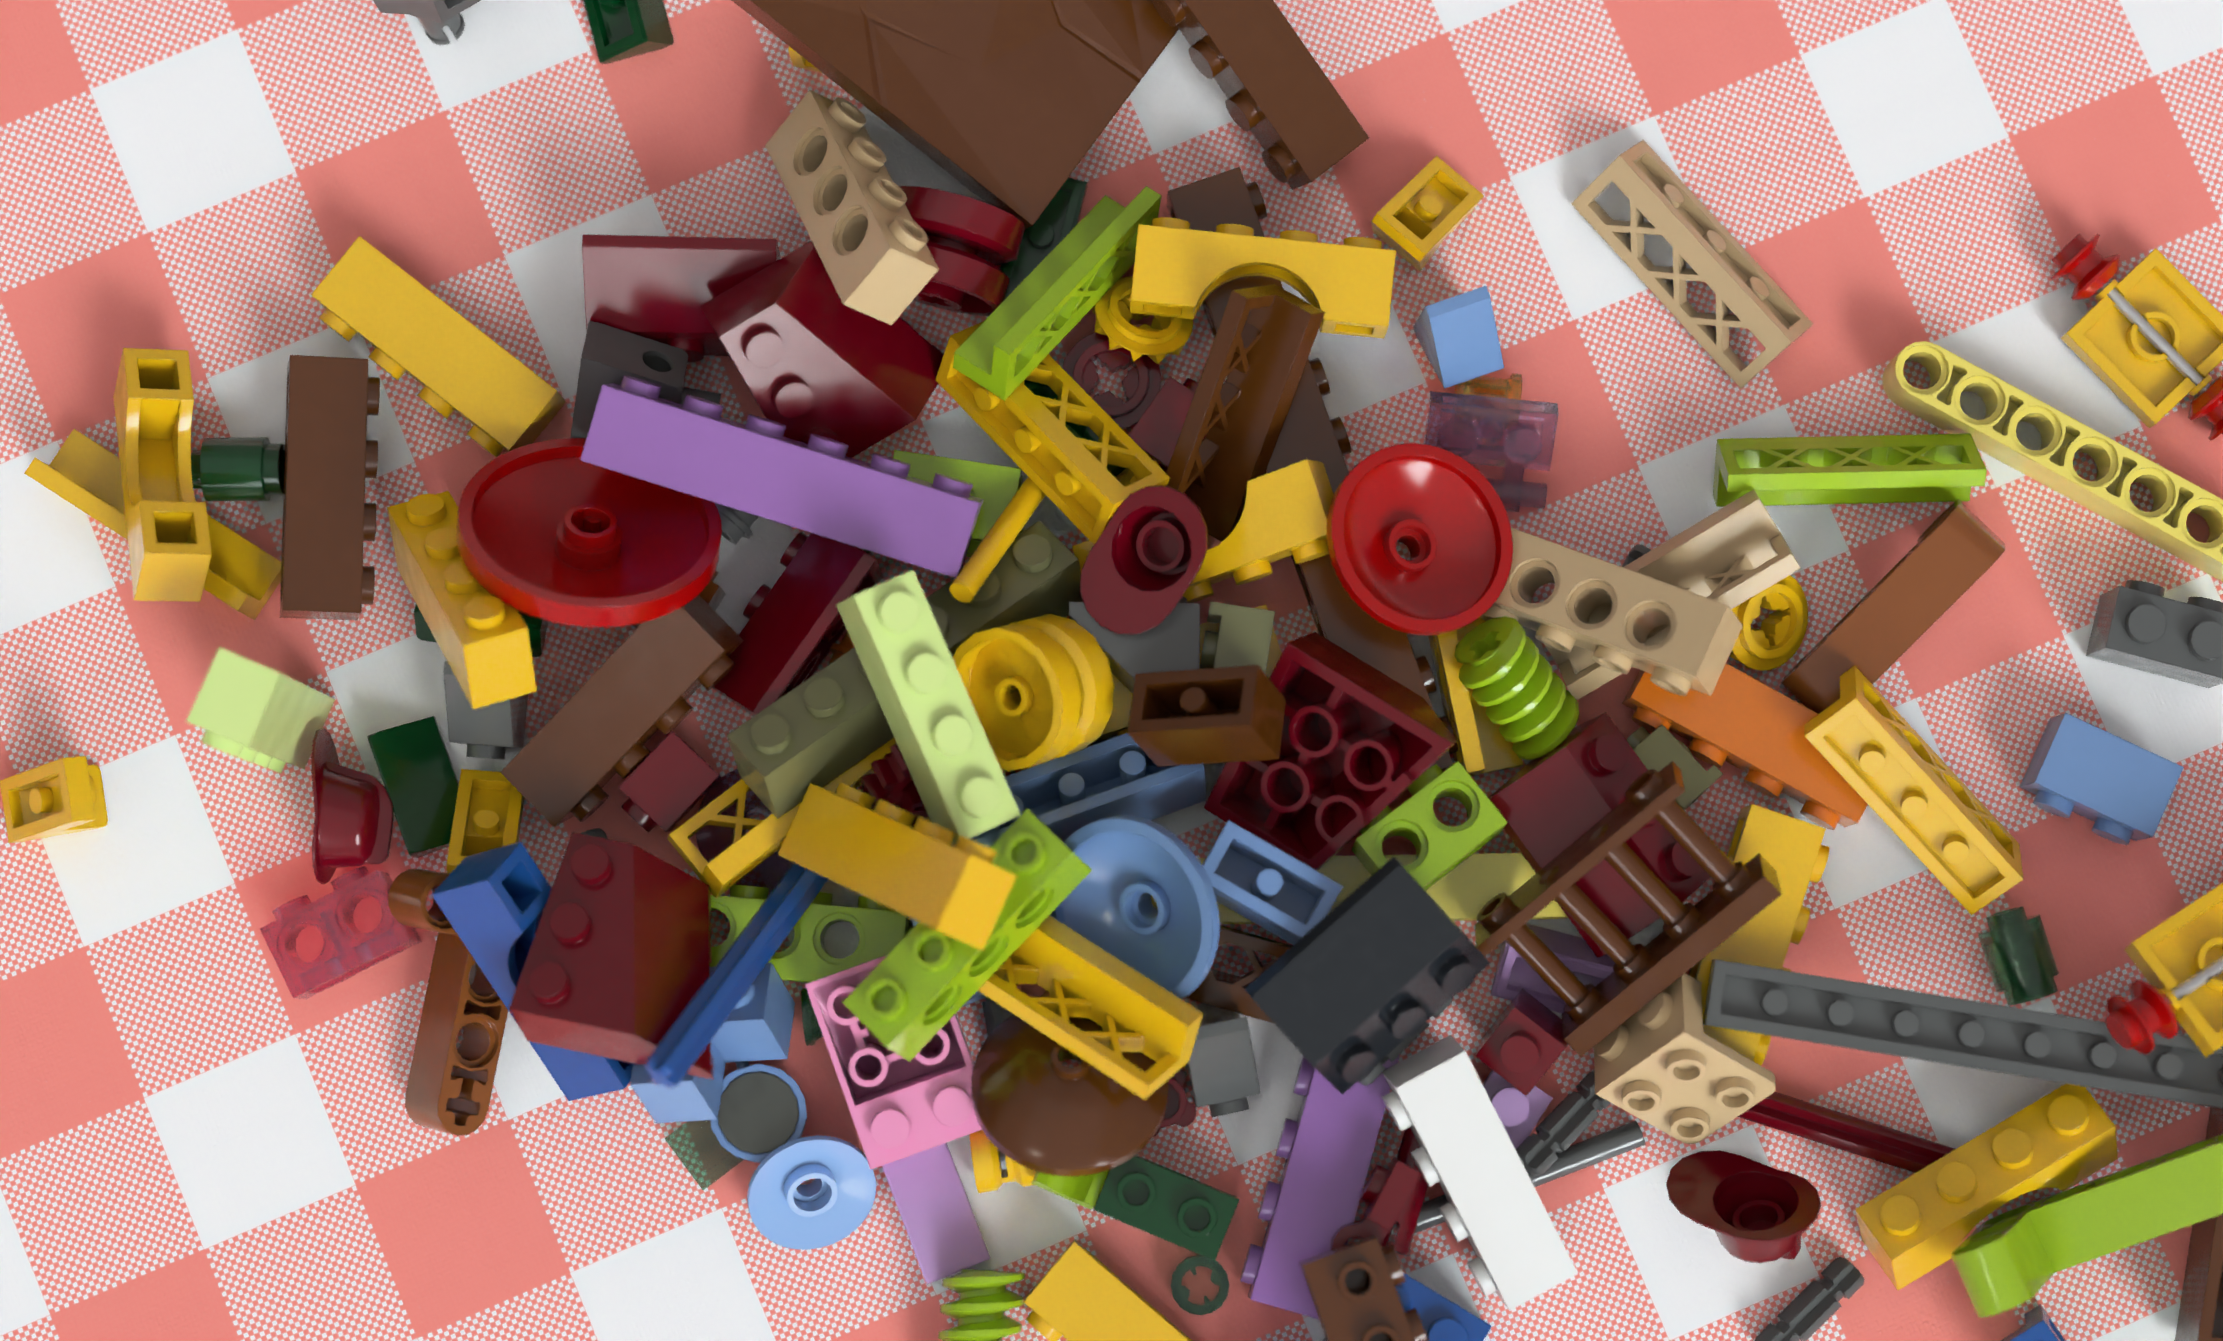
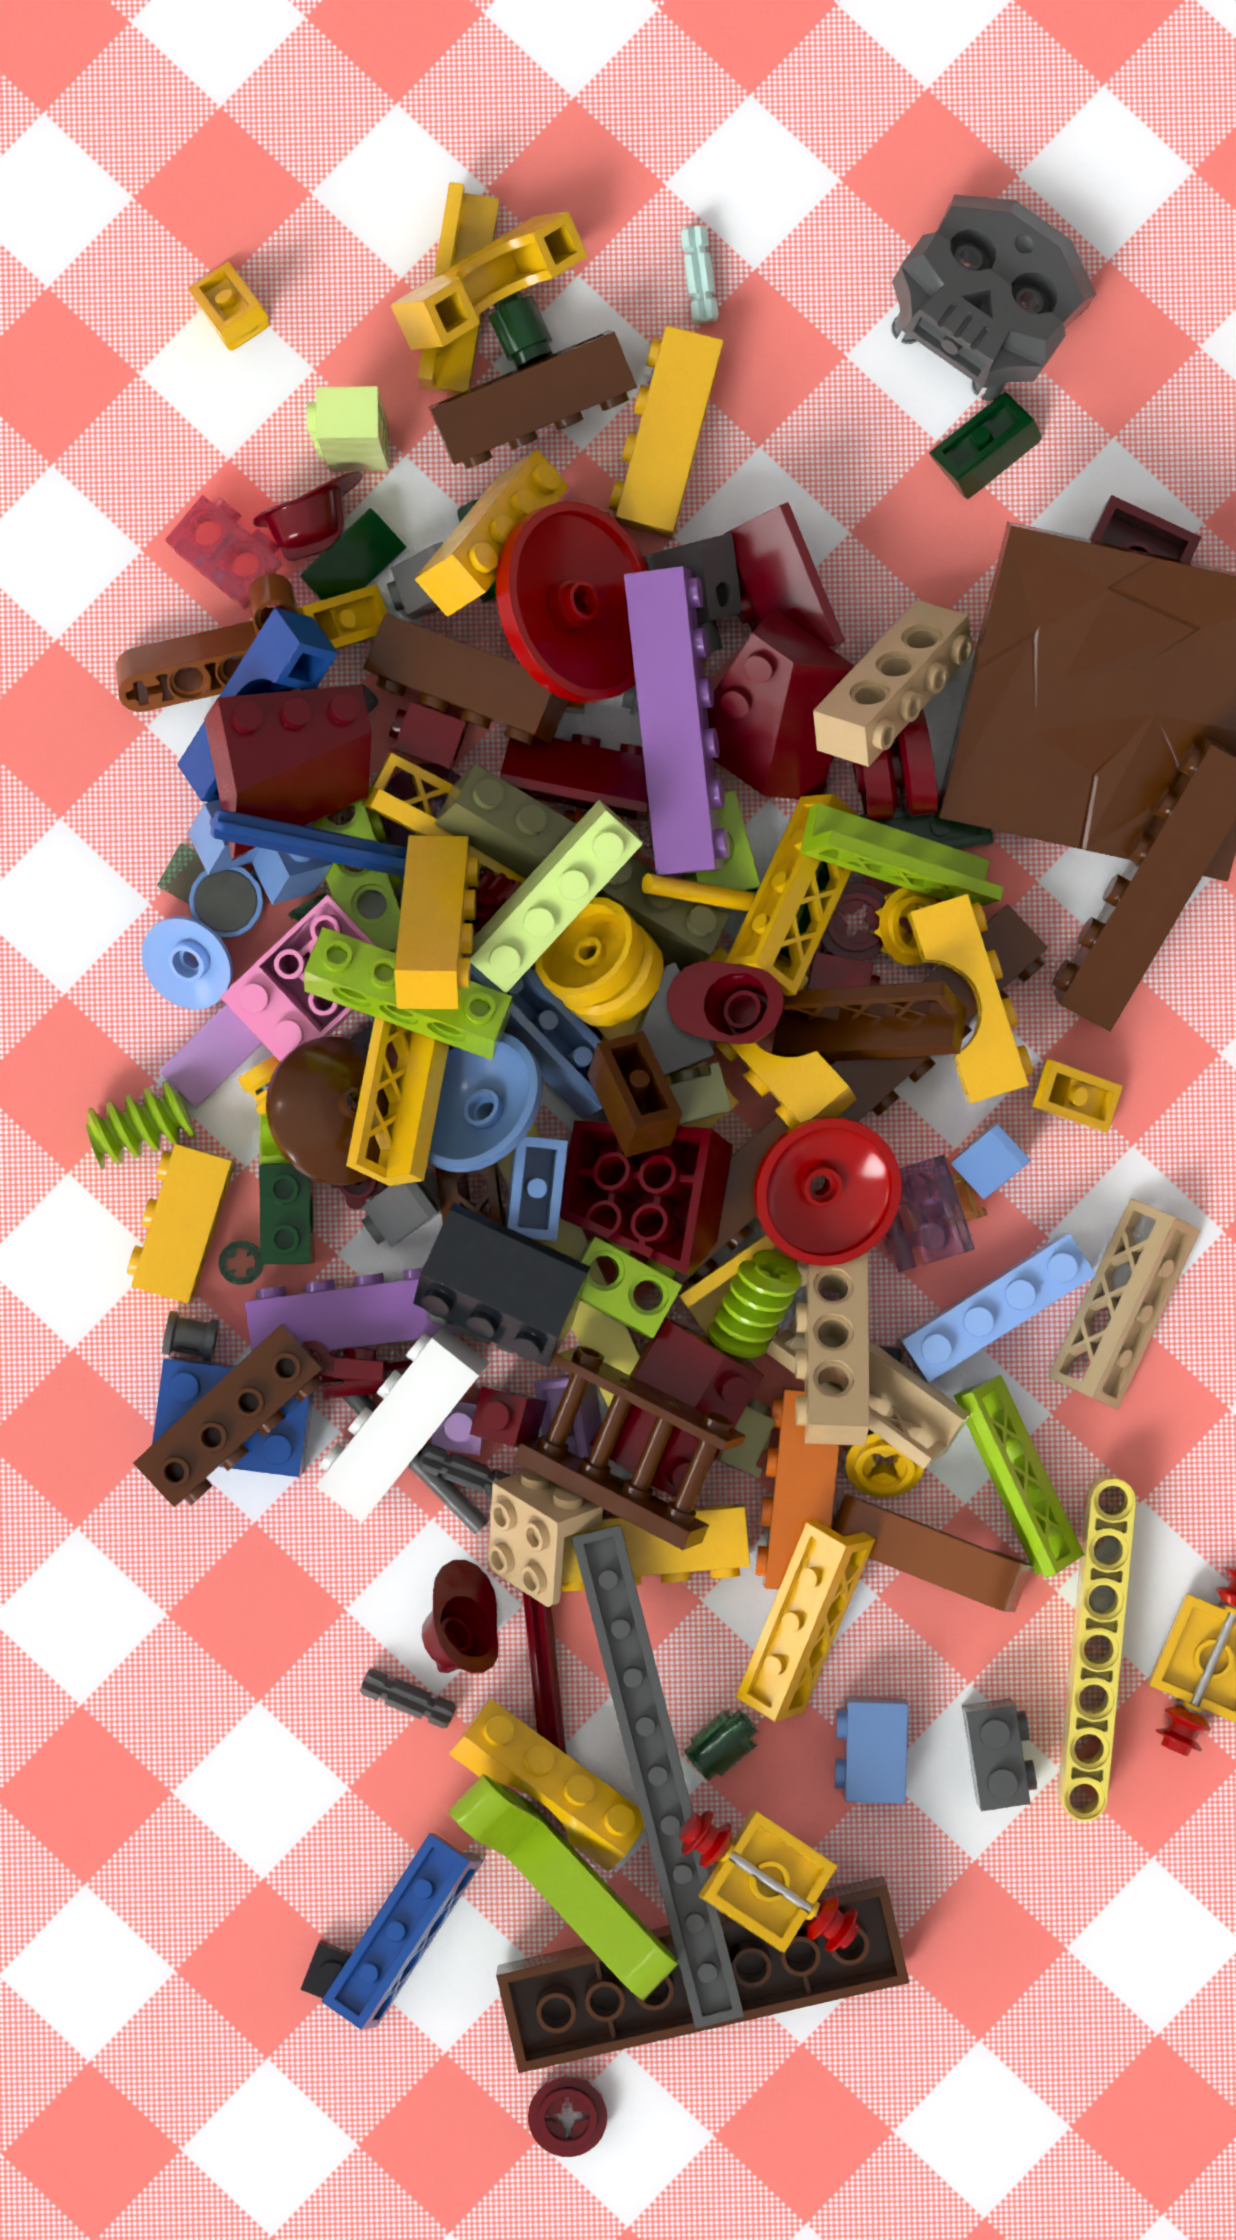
camera: 70 degrees right, 5 degrees up
(271, 235) = (699, 274): none -> light aqua axle
(1635, 409) = (997, 1307): none -> light blue brick

